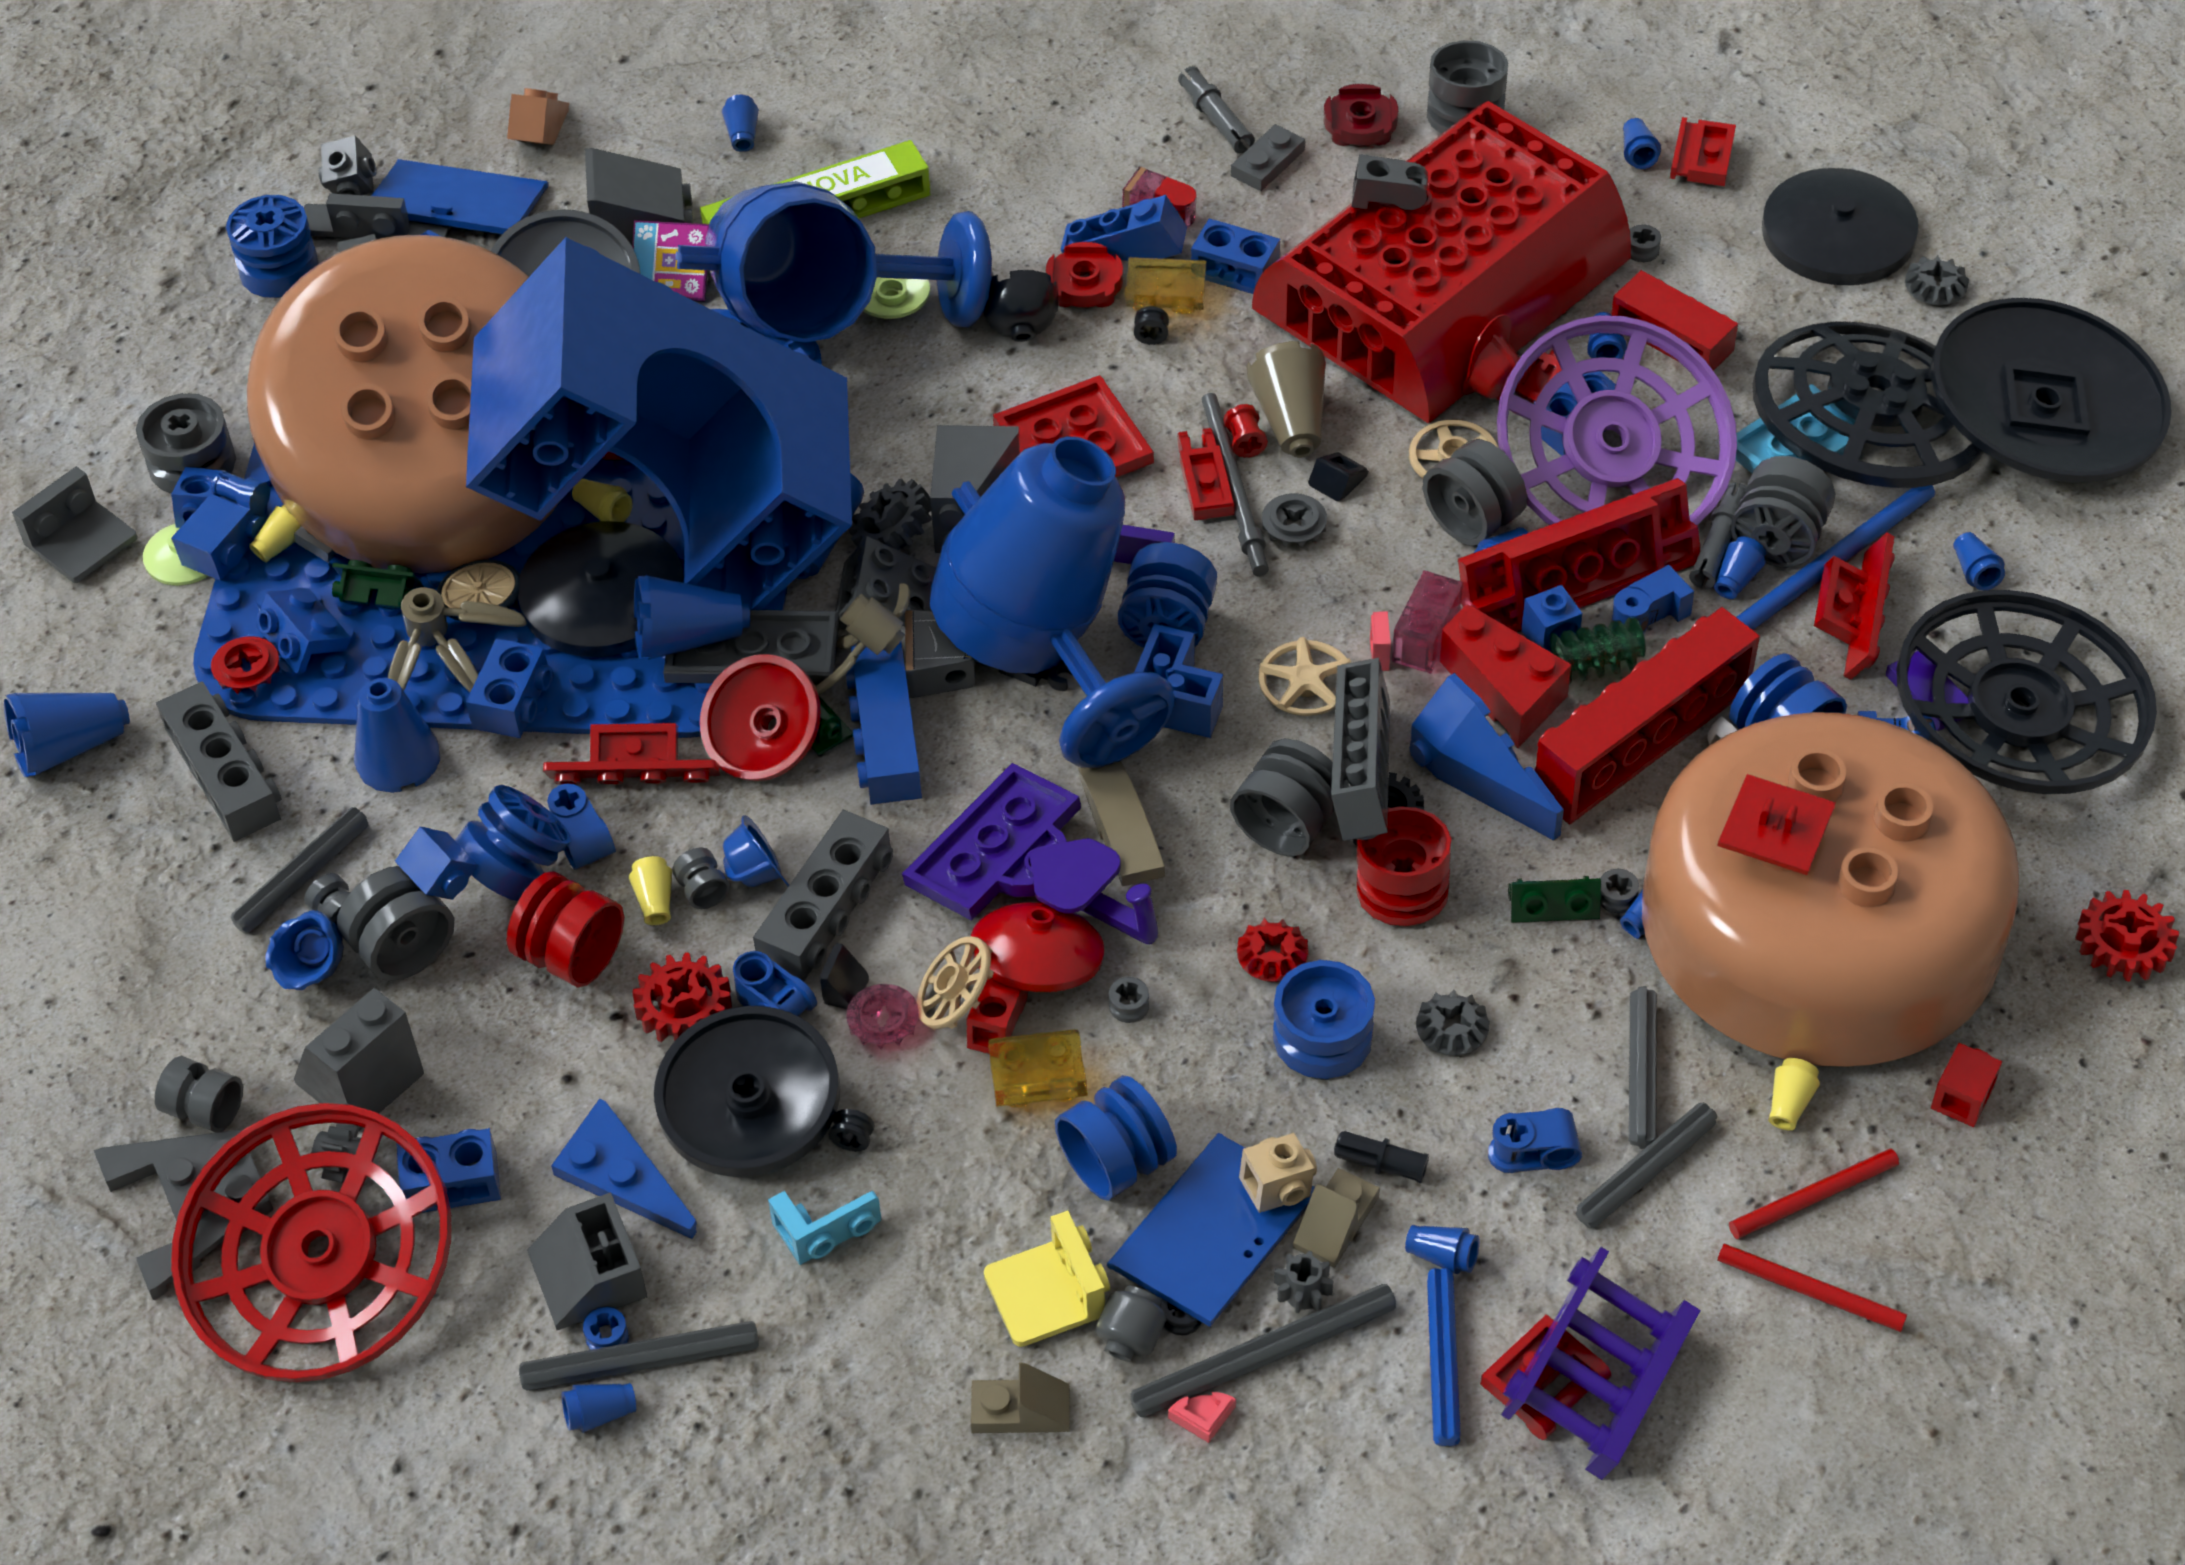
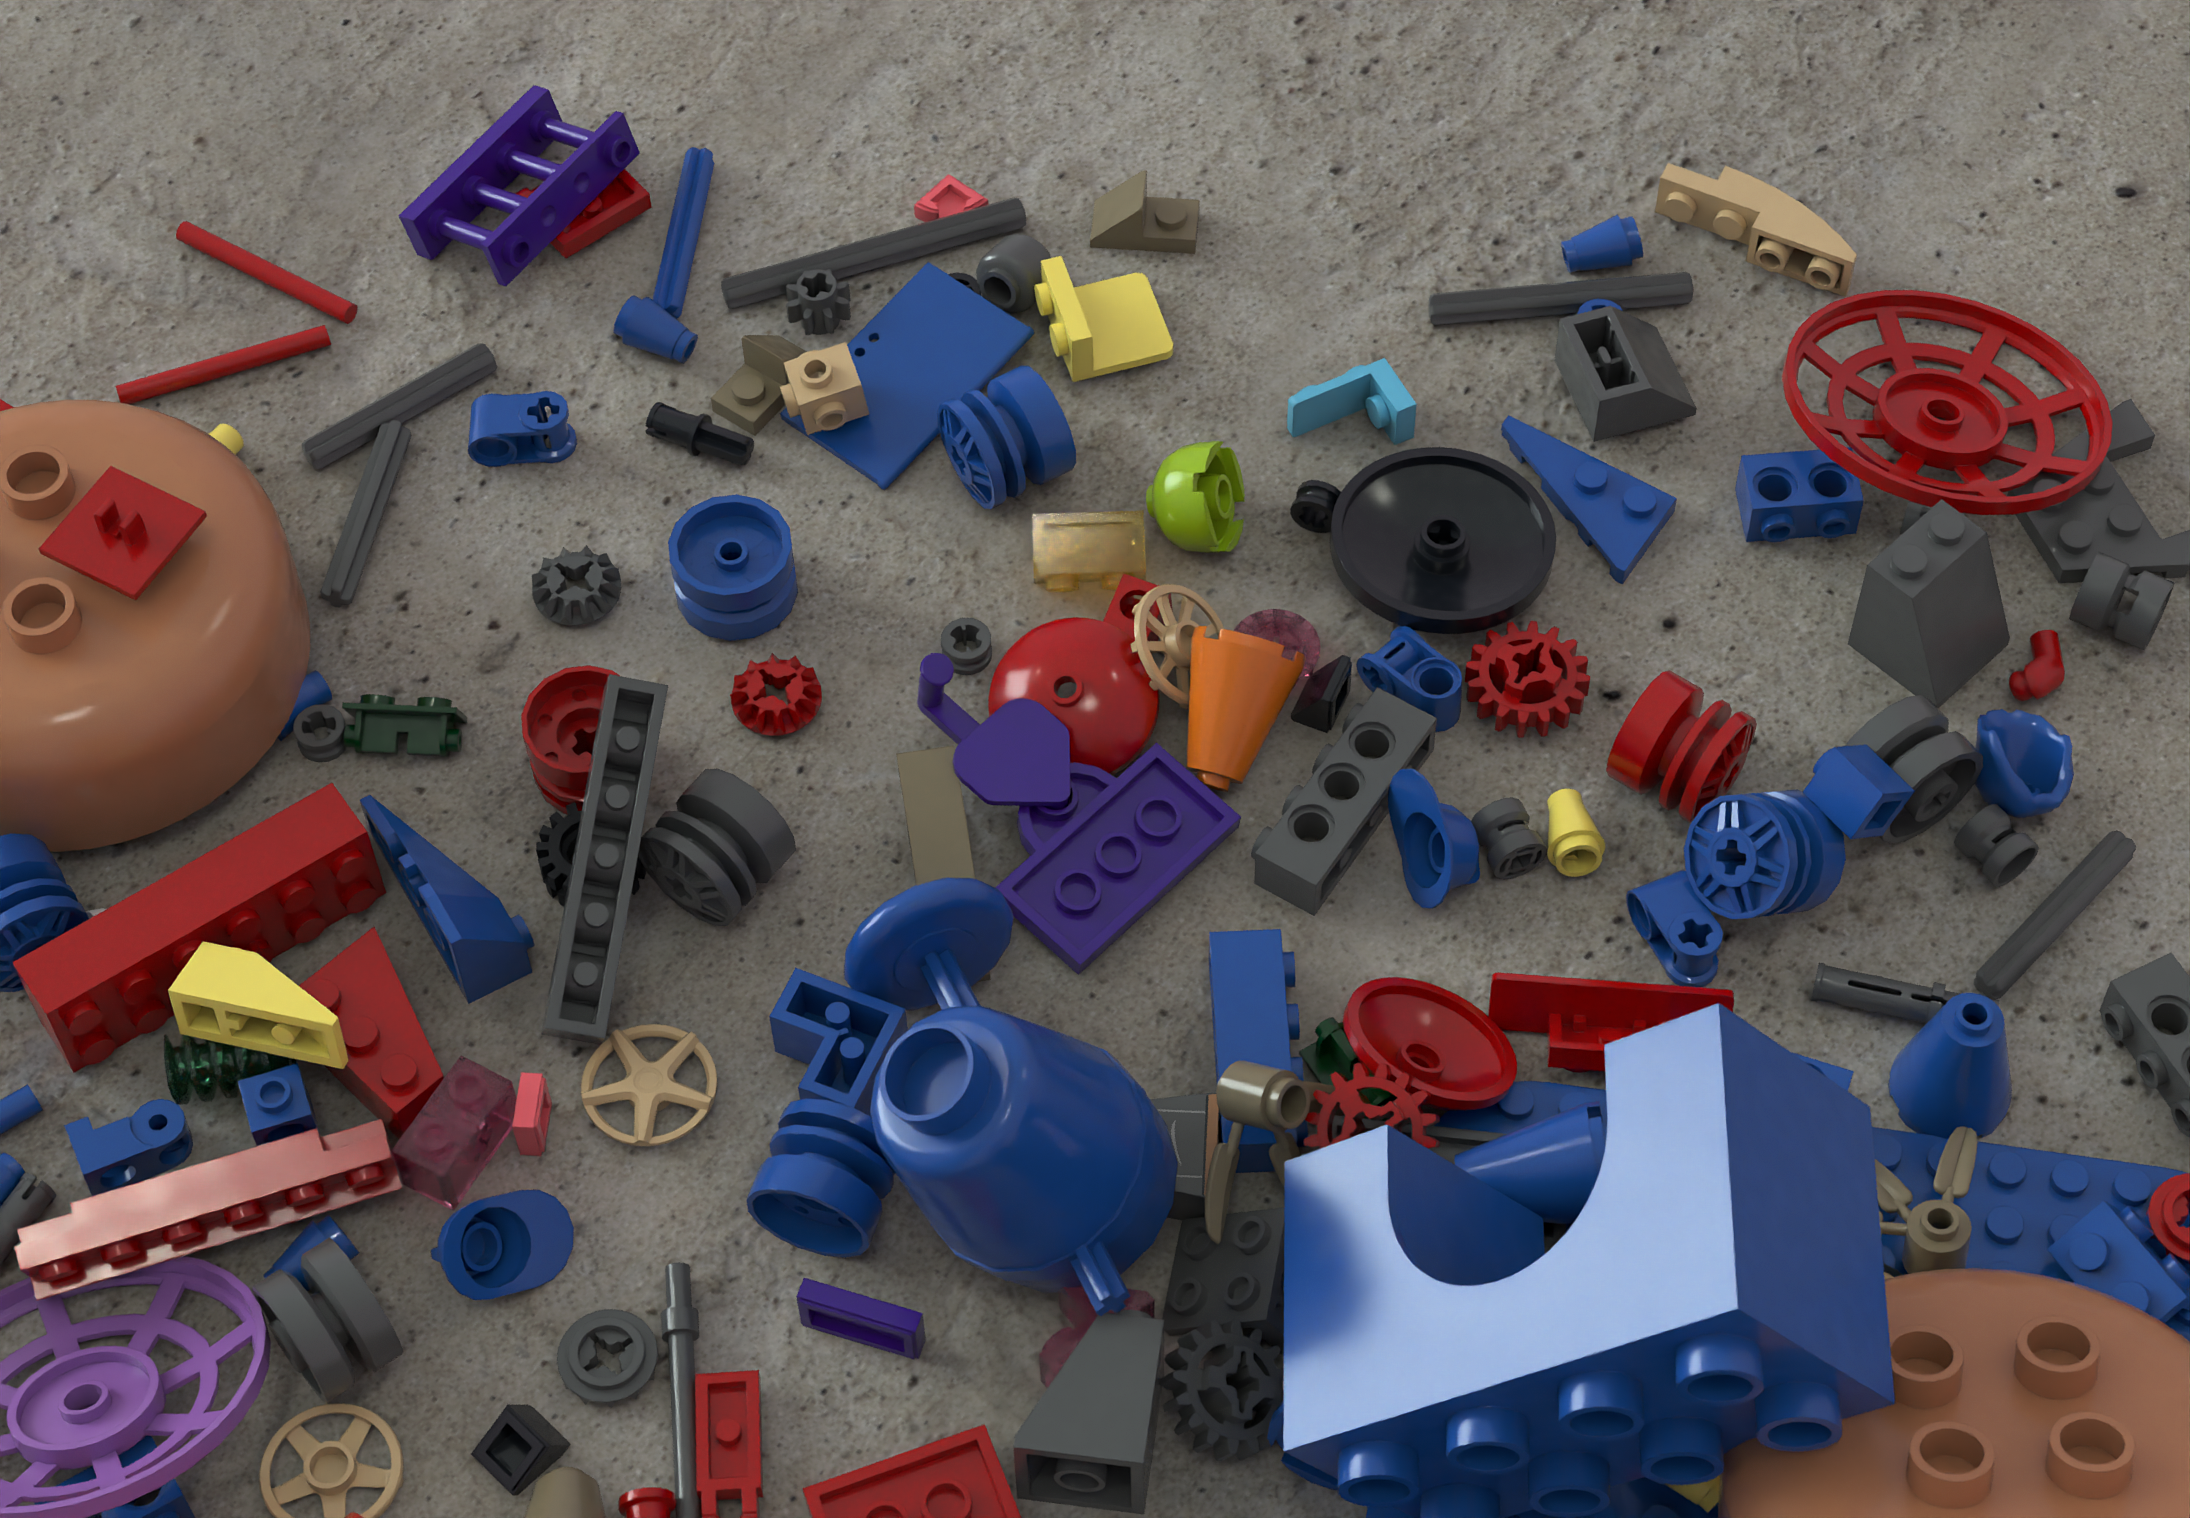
camera: 175 degrees left, 5 degrees up
(269, 1049) = (2045, 670): none -> red arm
(402, 795) = (1880, 994): none -> dark grey pin
(440, 1433) = (1777, 228): none -> tan slope
(798, 634) = (1357, 1106): none -> red gear
(905, 945) = (1234, 702): none -> orange cone
(952, 1113) = (1197, 497): none -> lime cylinder
(1386, 562) = (505, 1244): none -> blue piece
(1585, 637) = (252, 1005): none -> light yellow slope

